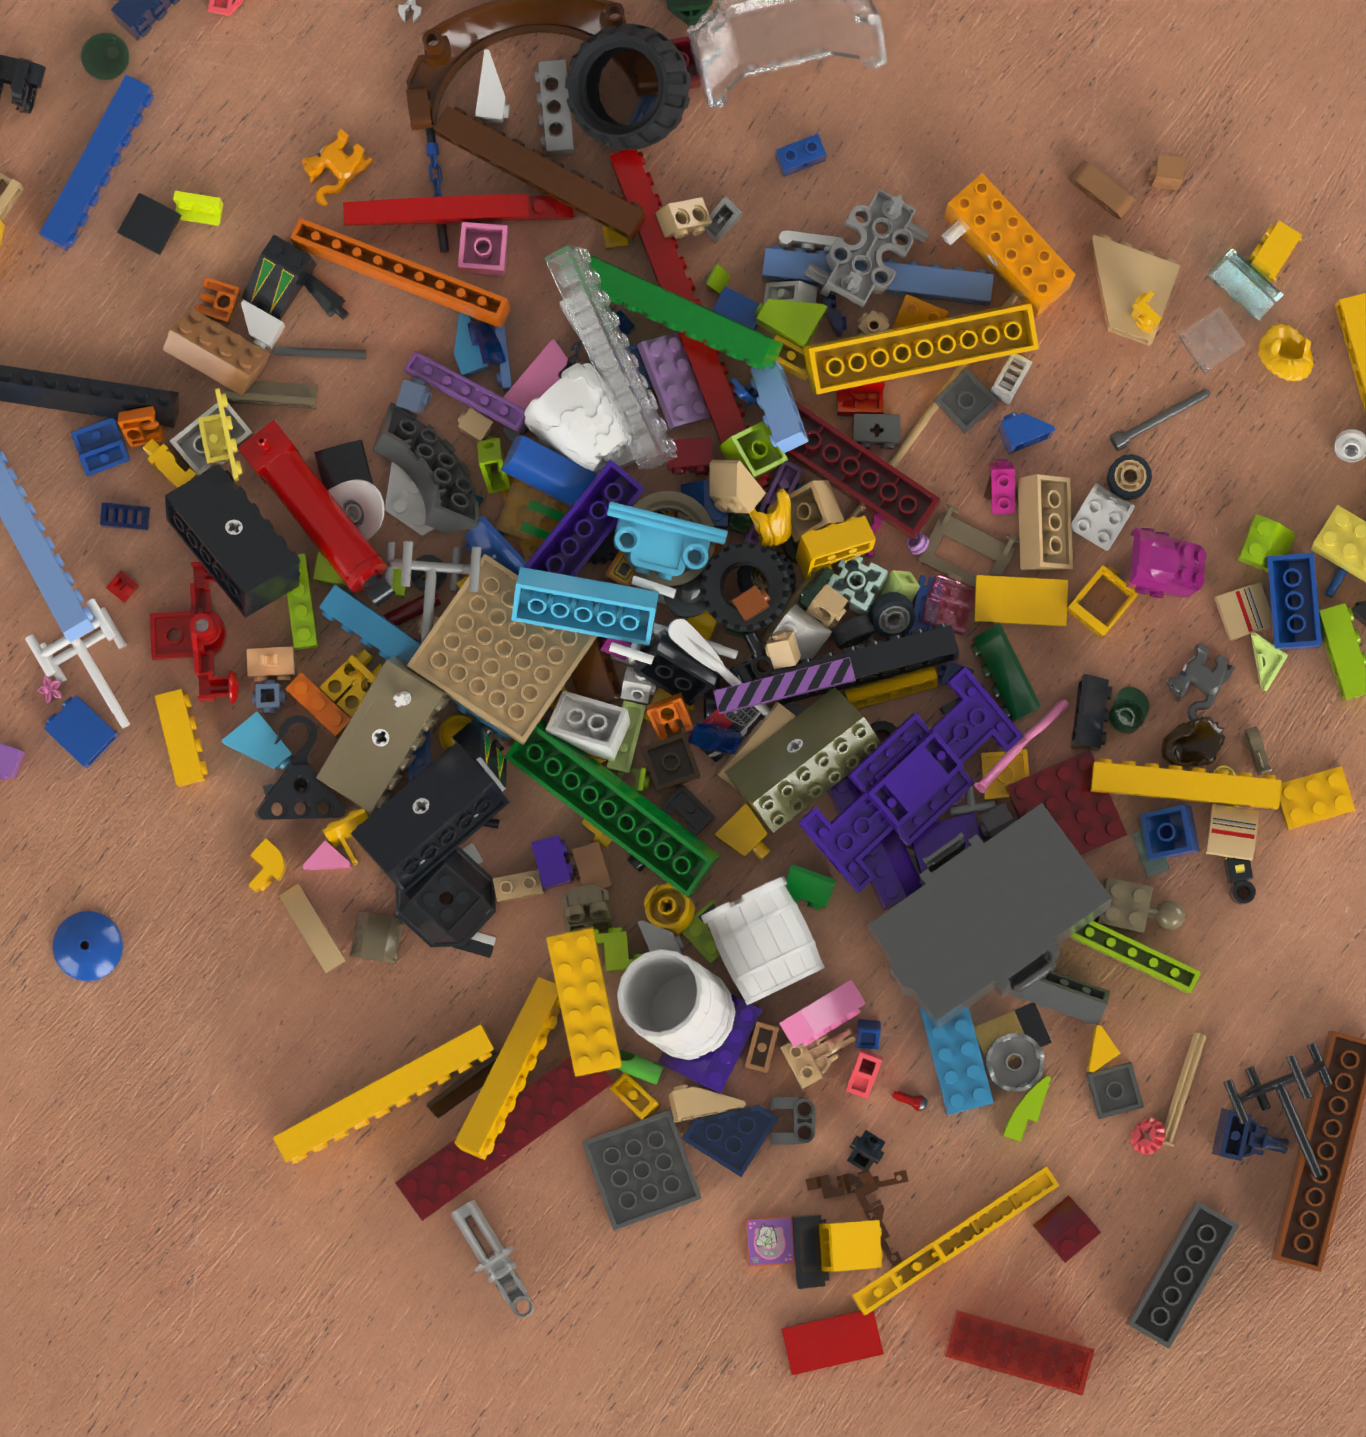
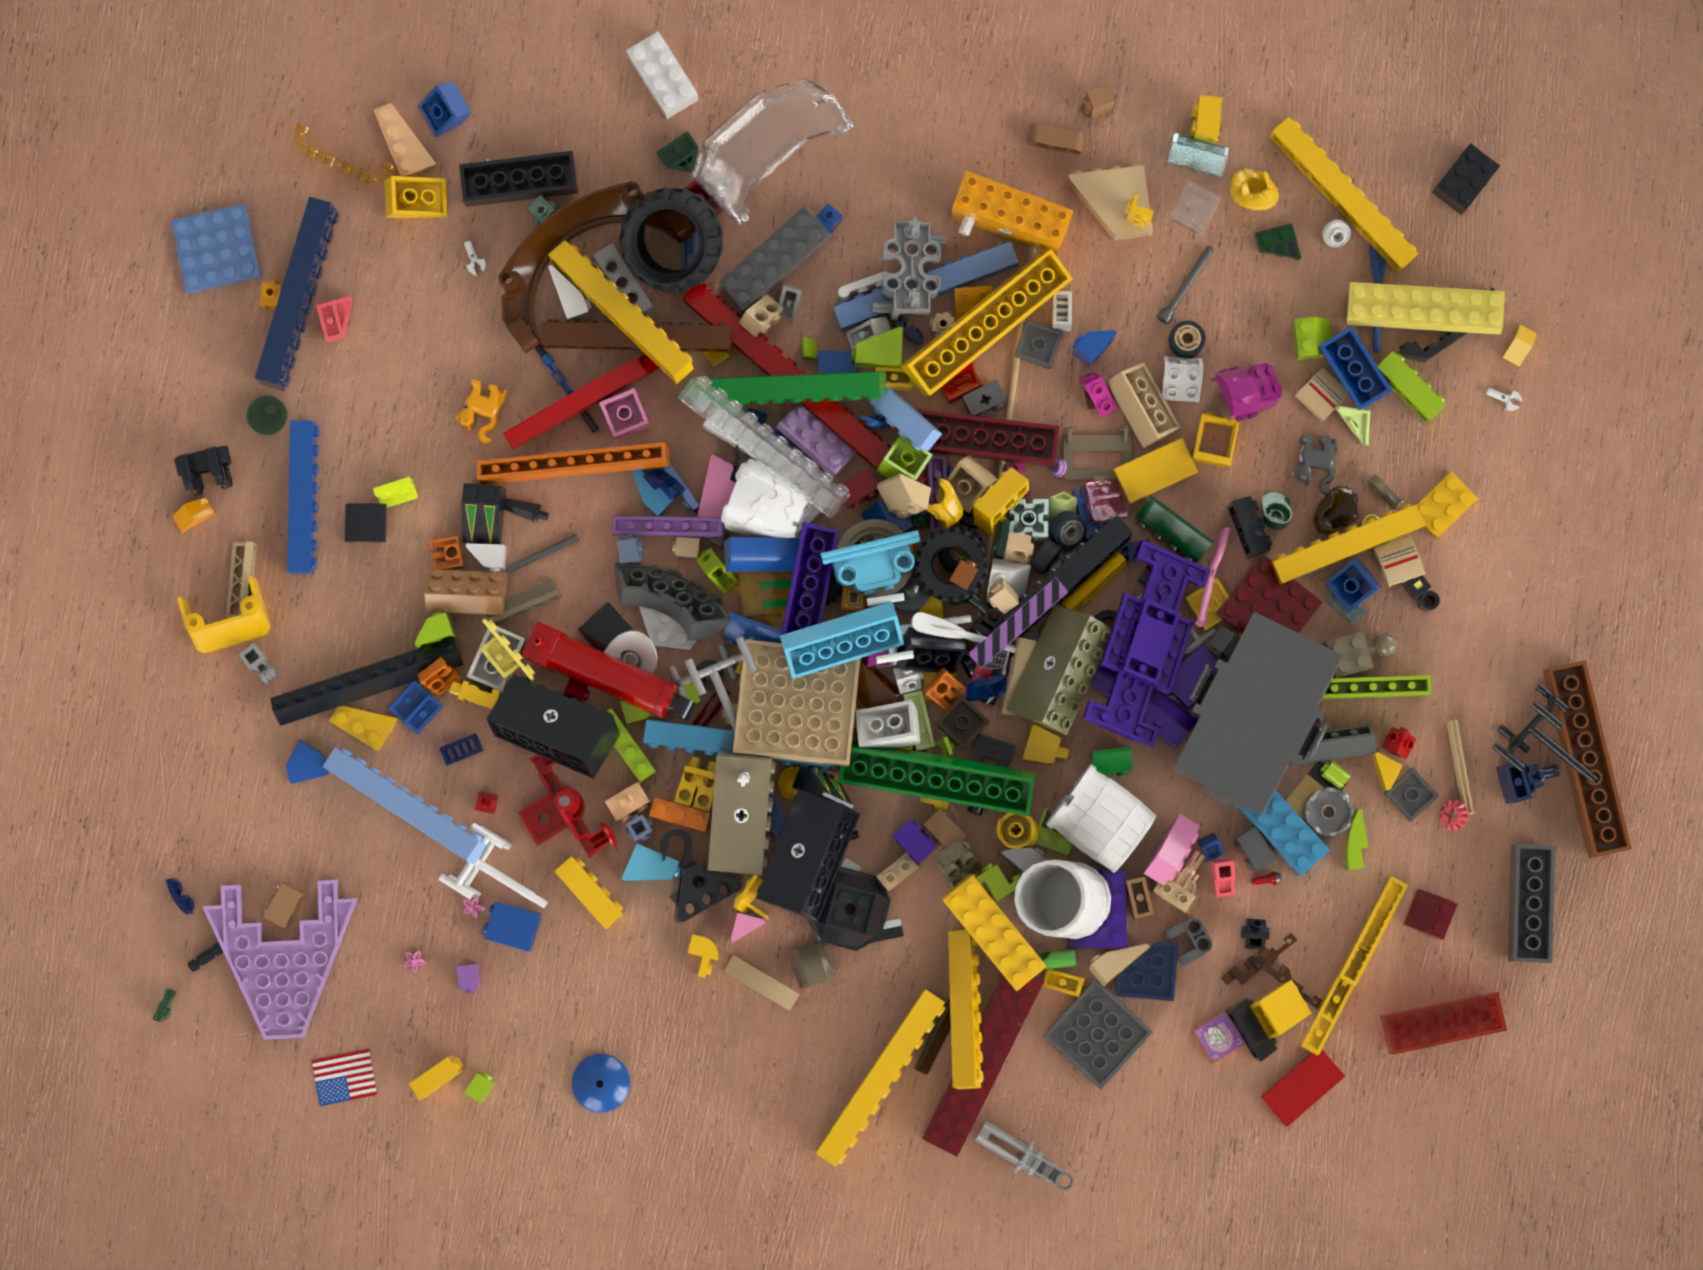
camera: 30 degrees left, 0 degrees up
(36, 438) = (364, 725): none -> yellow wing
(163, 374) = (436, 629): none -> lime slope
(279, 517) = (577, 690): none -> dark red brick
(535, 136) = (621, 311): none -> yellow brick
(731, 164) = (776, 258): none -> dark grey brick
(914, 1060) = (1254, 849): none -> dark grey brick
(1042, 1025) = (1334, 774): none -> lime brick
(1130, 1027) = (1399, 742): none -> red brick
(1285, 423) = (1278, 241): none -> dark green wing

